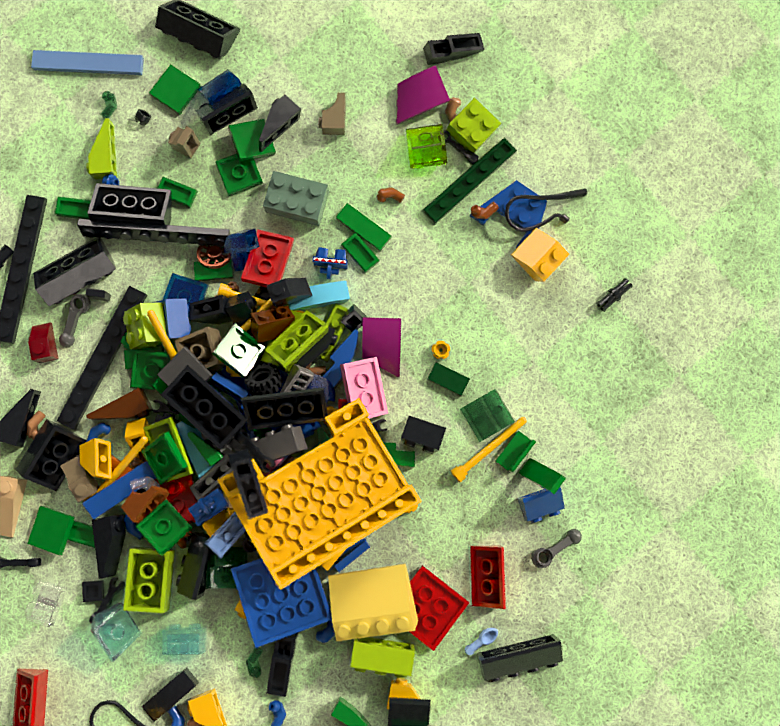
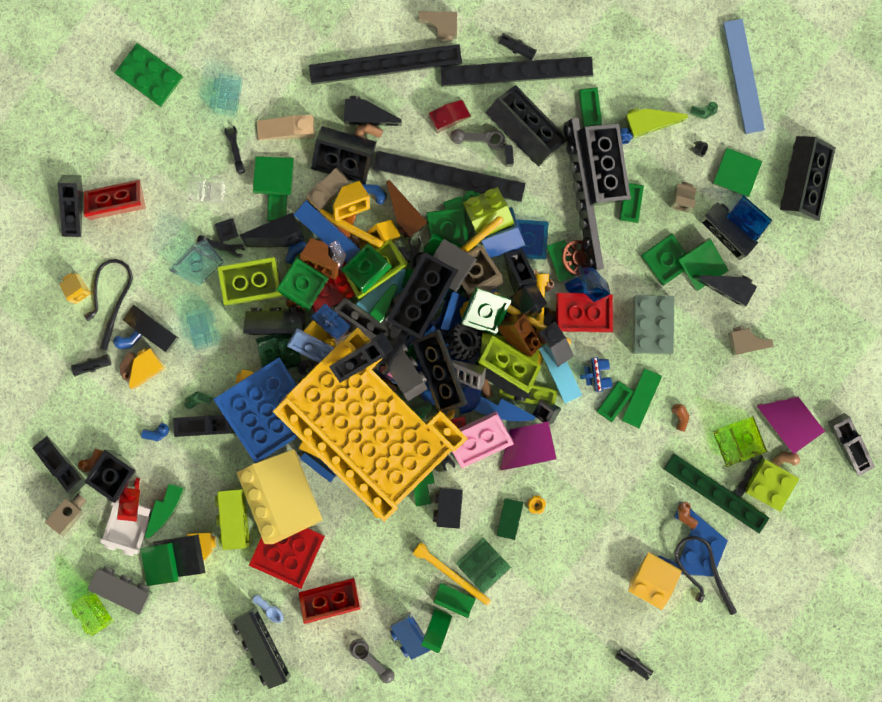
camera: 75 degrees right, 5 degrees up
(325, 635) = (240, 461): blue arm -> none

